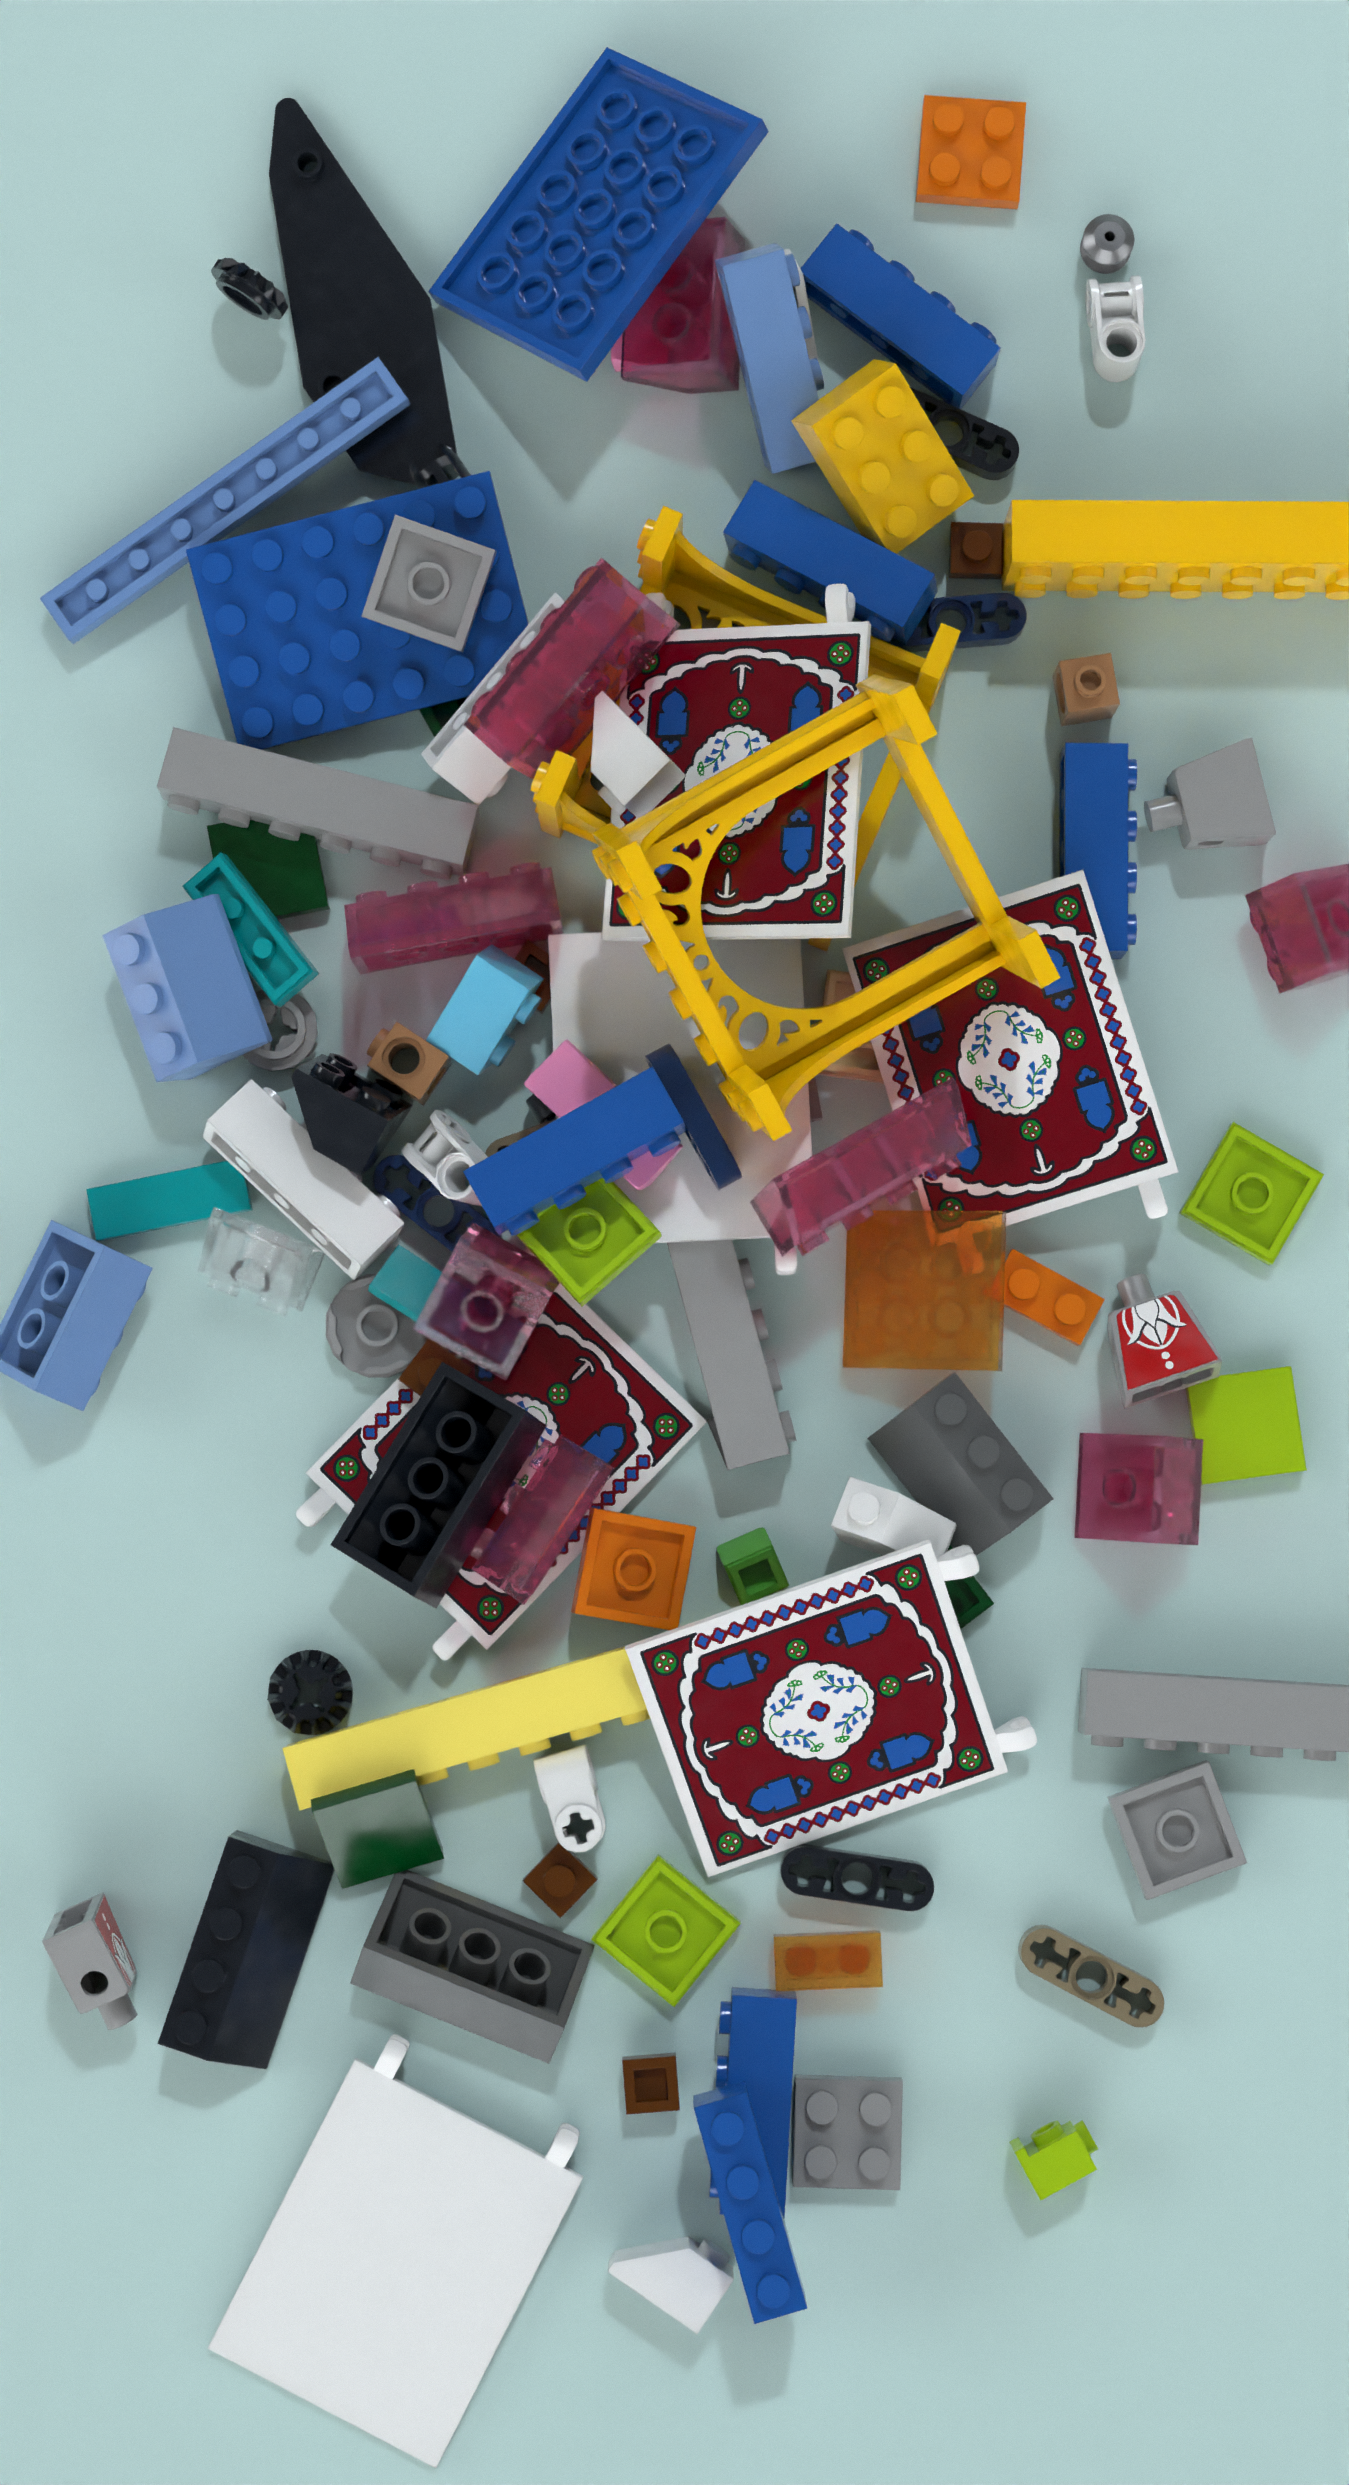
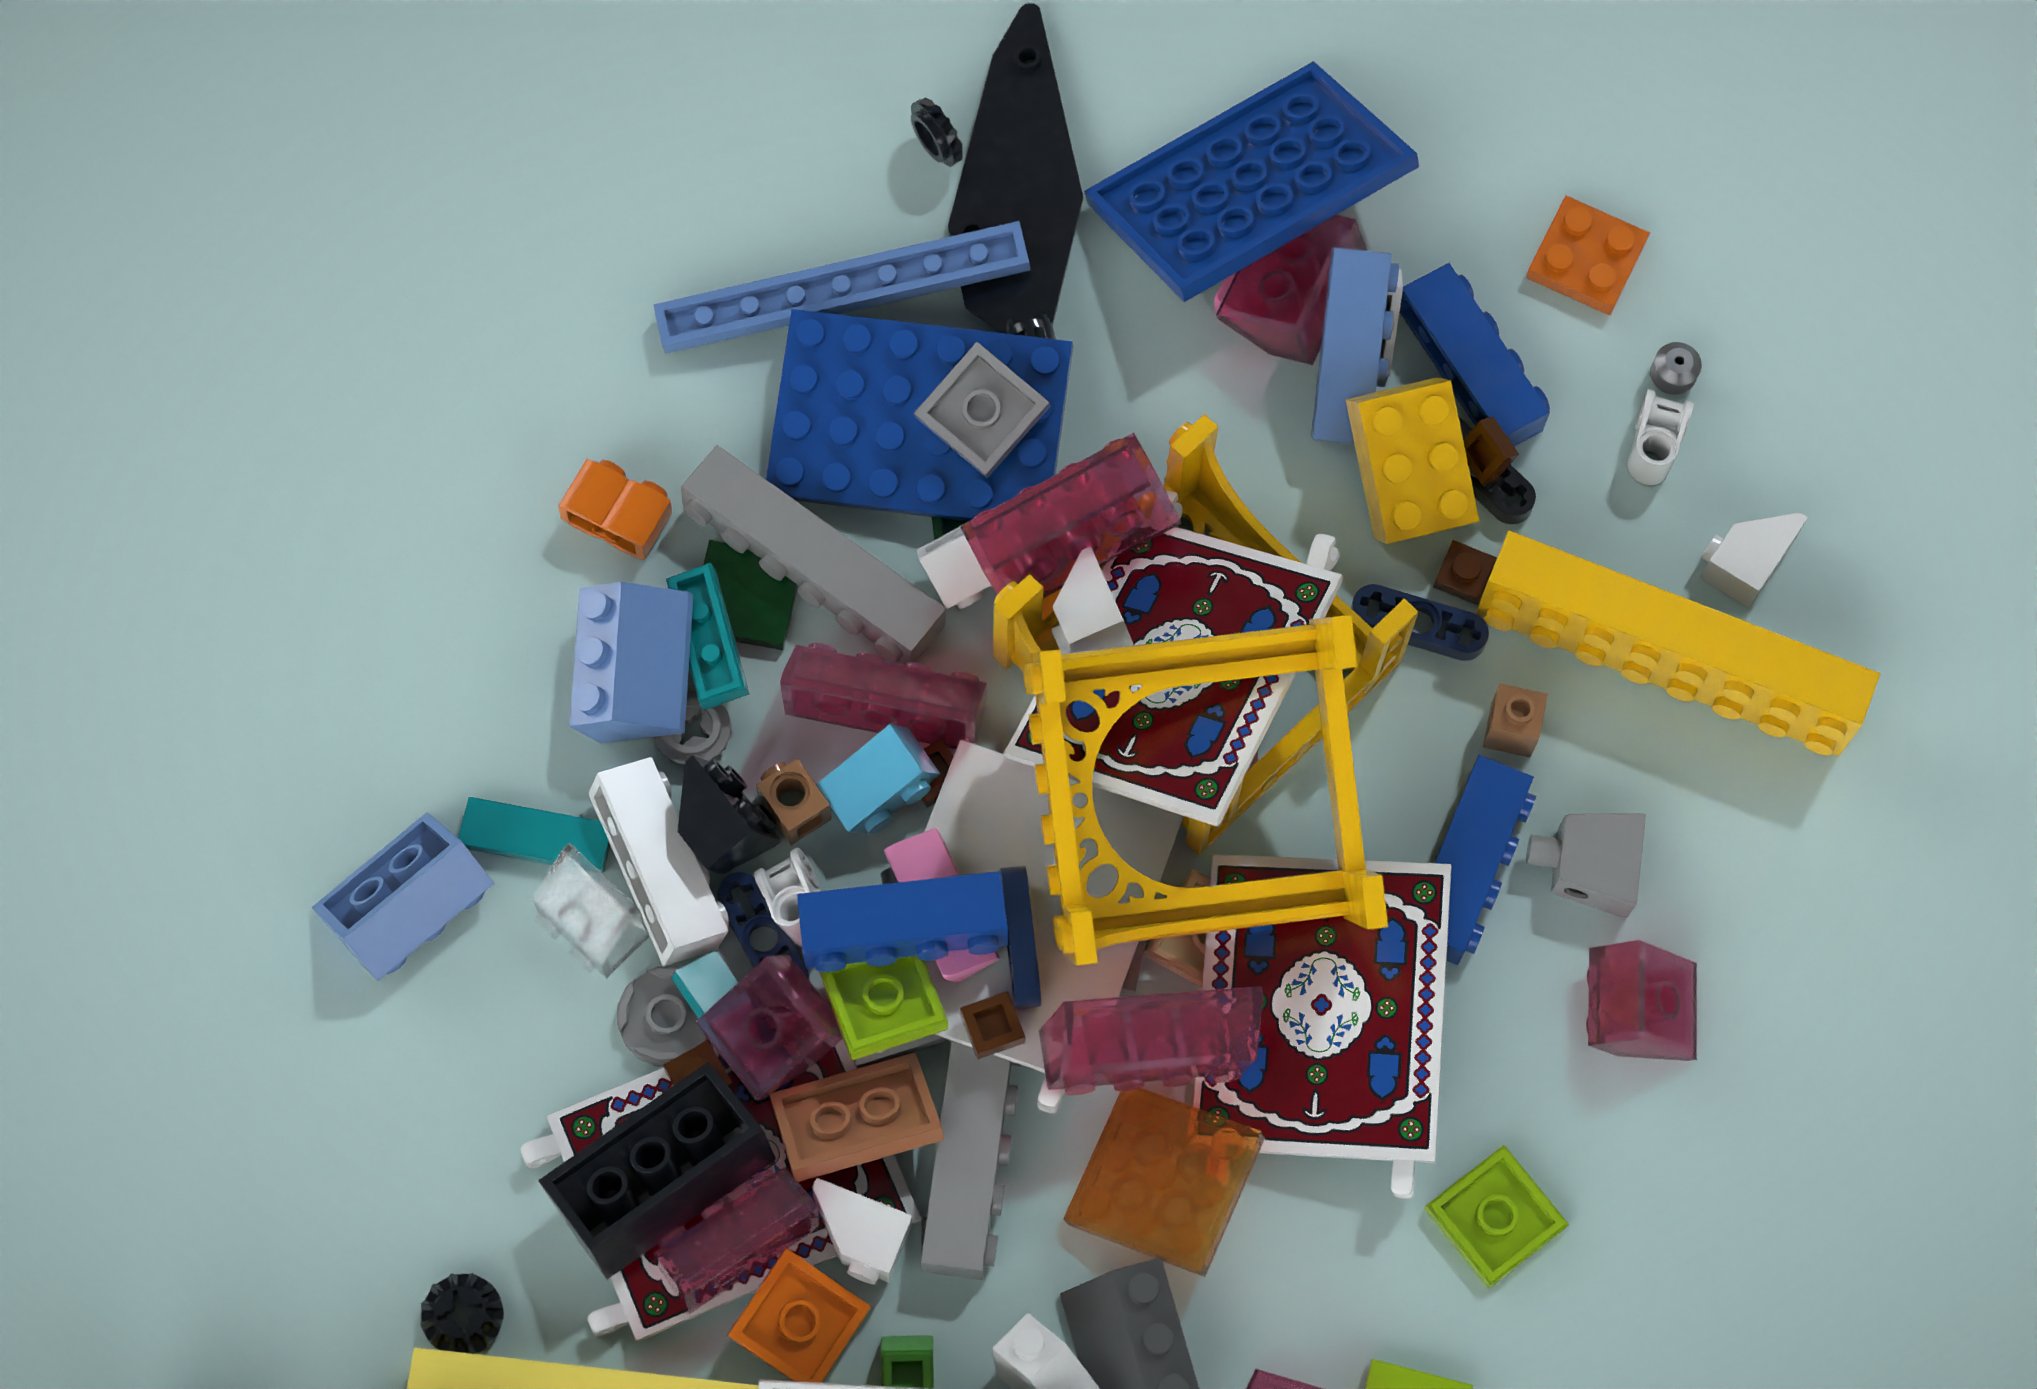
camera: 20 degrees right, 15 degrees down
(97, 831) = (616, 508): none -> orange brick
(607, 1354) = (856, 1117): none -> nougat plate
(659, 1461) = (863, 1231): none -> white slope
(703, 1216) = (992, 1025): none -> reddish brown plate
(814, 552) = (1313, 503): blue brick -> none
(955, 415) = (1488, 450): none -> reddish brown plate
(1049, 1298) = (1274, 1234): orange plate -> none
(1157, 1343) = (1357, 1313): torso -> none
(1254, 419) = (1749, 555): none -> white slope

